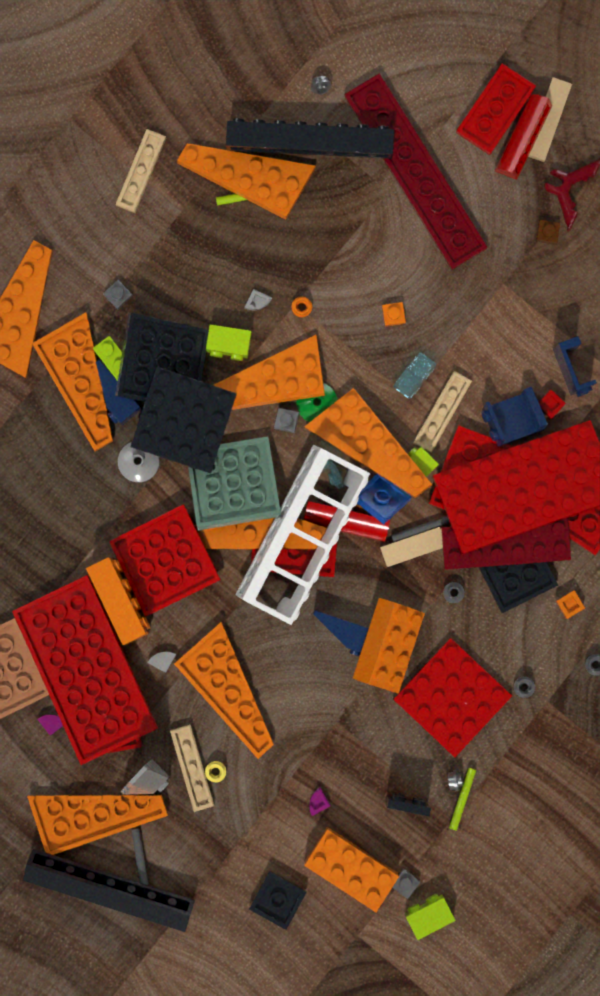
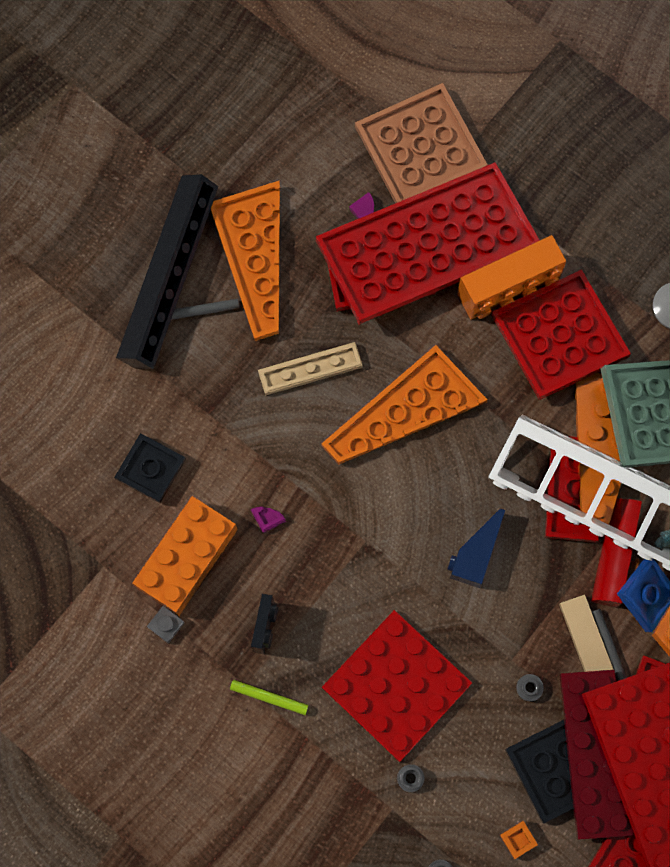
camera: 90 degrees right, 10 degrees down
(147, 780) = (299, 308): light grey wedge -> none
(162, 660) = (438, 333): light grey tile -> none
(215, 778) = (305, 388): light yellow plate -> none
(388, 645) = (463, 601): orange brick -> none
(429, 916) = (124, 652): lime brick -> none
(455, 780) = (293, 687): flat silver plate -> none

